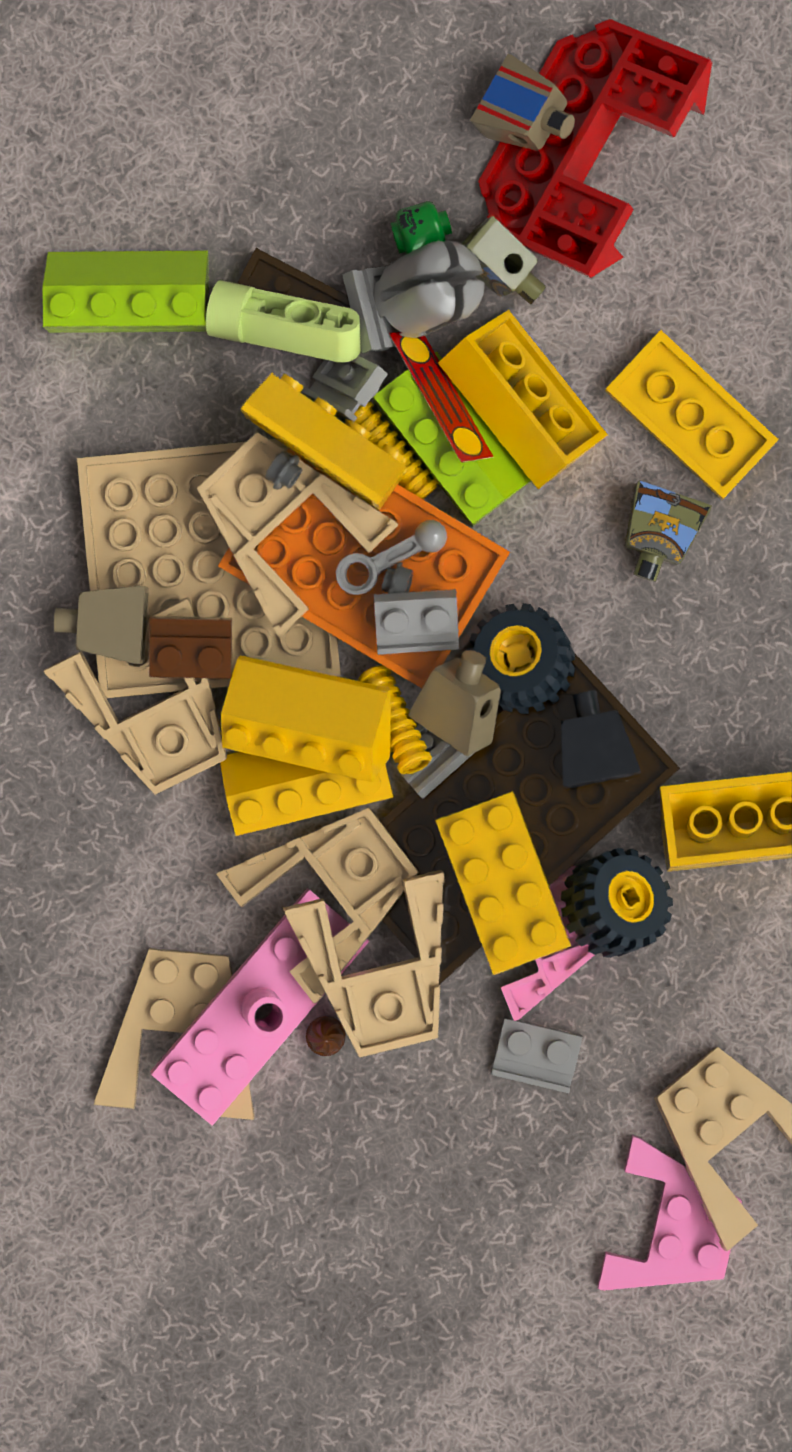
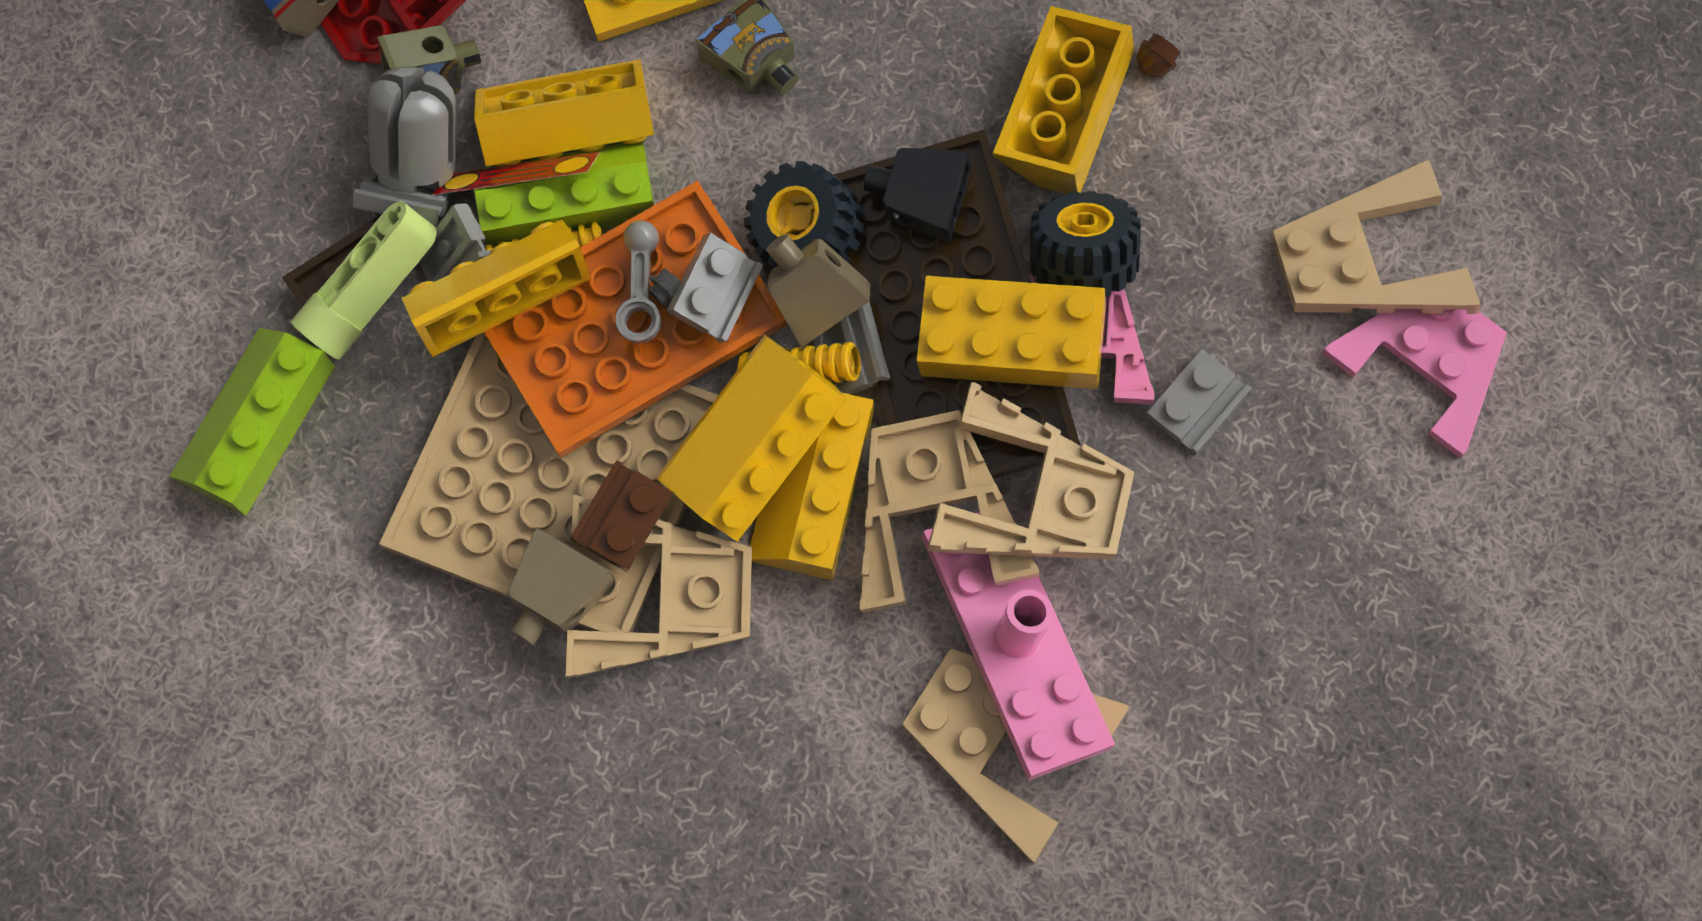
camera: 60 degrees left, 15 degrees down
(250, 509) = (509, 375): tan wing -> none
(284, 471) = (500, 330): dark grey plate -> none
(325, 1035) = (1079, 593): reddish brown plate -> none
(419, 226) = (349, 124): green head -> none

